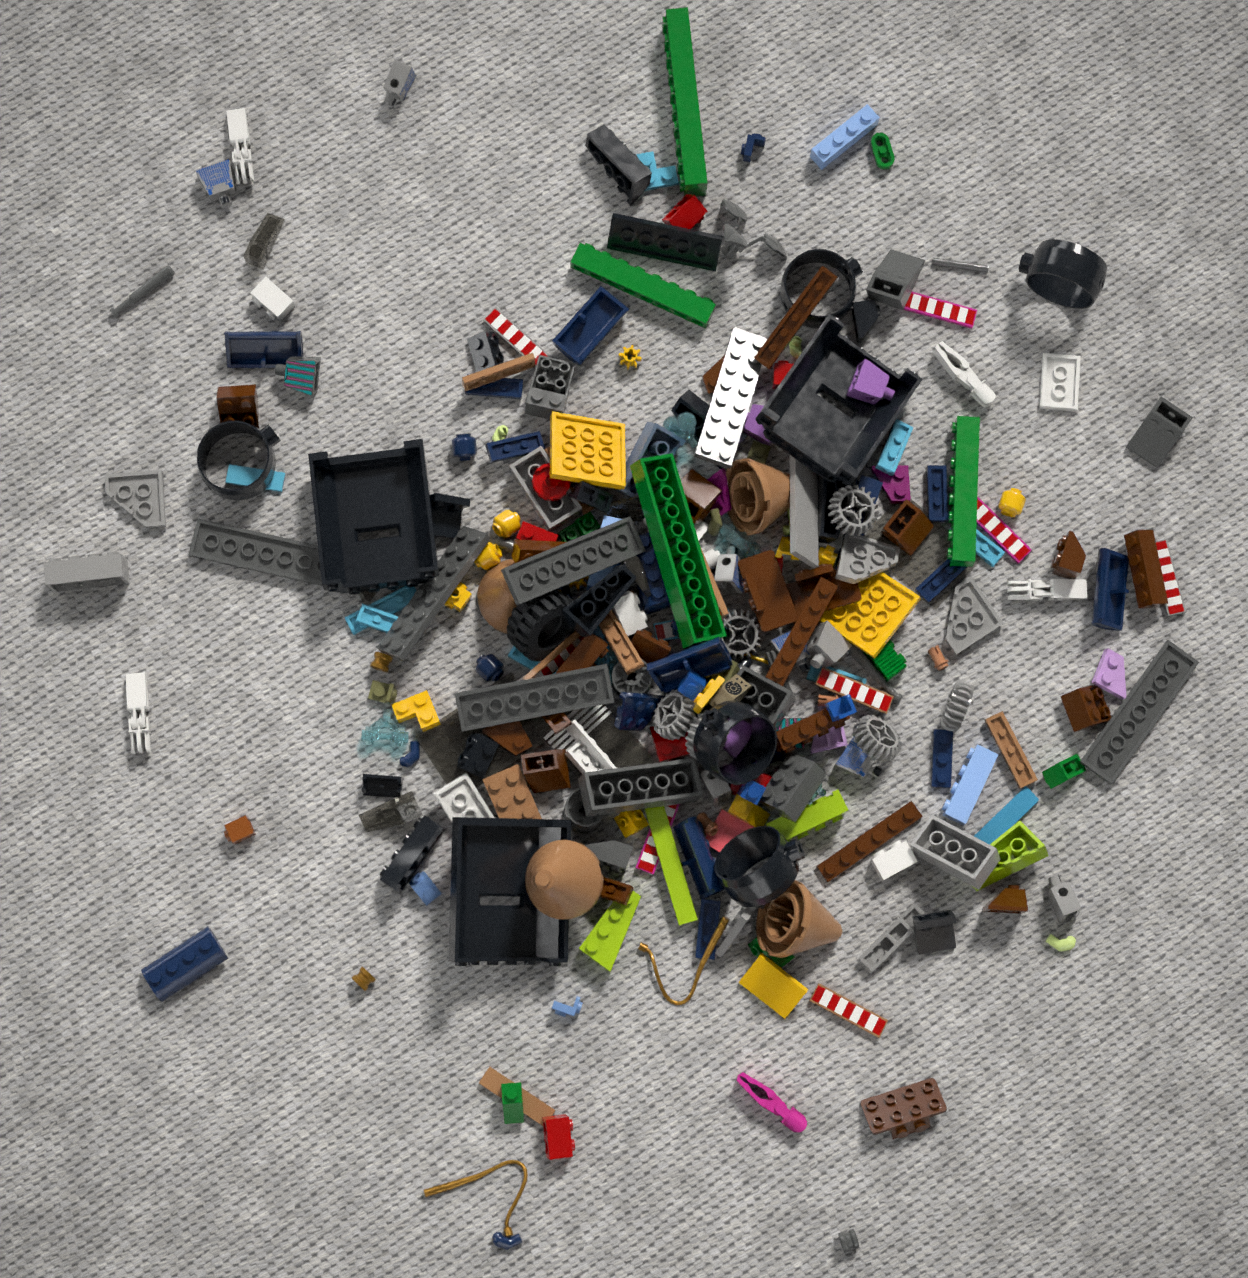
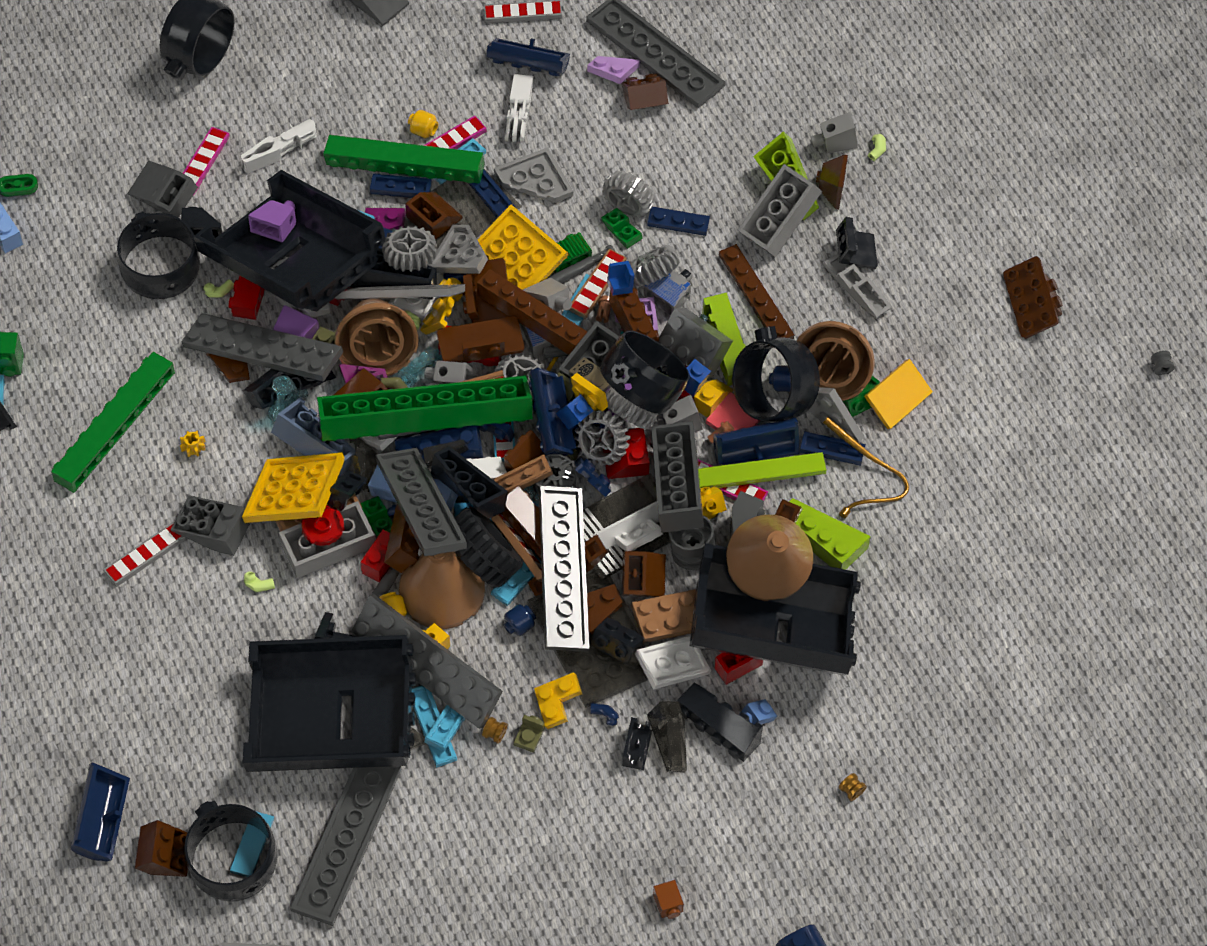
camera: 80 degrees left, 20 degrees down
(272, 299) = (40, 799): white brick -> none
(300, 374) = (138, 774): dark grey torso -> none
(372, 734) = (582, 721): clear light blue piece -> none
(456, 1183) = (1082, 716): pearl gold piece -> none
(464, 446) = (260, 617): dark blue head -> none
(485, 350) = (154, 586): bracket -> none
(498, 372) = (183, 568): medium nougat tile -> none
(501, 388) = (196, 581): dark blue plate -> none
(504, 1242) = (1150, 678): dark blue arm -> none
(506, 523) = (358, 585): yellow head -> none
(512, 1103) = (1001, 648): green slope -> none
(514, 446) = (272, 565): dark blue plate -> none
(532, 1105) = (994, 651): medium nougat tile -> none
(558, 1136) = (1041, 611): red brick -> none
(562, 1009) = (905, 592): medium blue bracket -> none
(589, 326) = (151, 474): dark blue container -> none
(664, 242) = (70, 392): black plate -> none
(686, 212) = (44, 370): red brick -> none
(735, 242) = (89, 329): dark grey plant -> none
(791, 1117) = (1018, 412): dark pink arm -> none
(796, 317) = (190, 268): reddish brown plate -> none
(848, 1010) = (929, 334): tile -> none
(894, 860) = (779, 273): white brick -> none
(925, 705) = (620, 227): none -> green slope
(938, 658) = (574, 209): nougat pin -> none
(960, 265) = (159, 136): dark grey bar -> none
(970, 784) = (709, 198): light blue brick -> none
(1007, 816) = (743, 171): dark azure tile -> none
(1011, 750) = (678, 160): medium nougat plate -> none
(1060, 382) = (303, 69): white tile -> none
(1063, 771) = (707, 120): green slope -> none
(1070, 557) = (489, 80): reddish brown slope -> none
(1145, 569) = (512, 22): reddish brown brick -> none

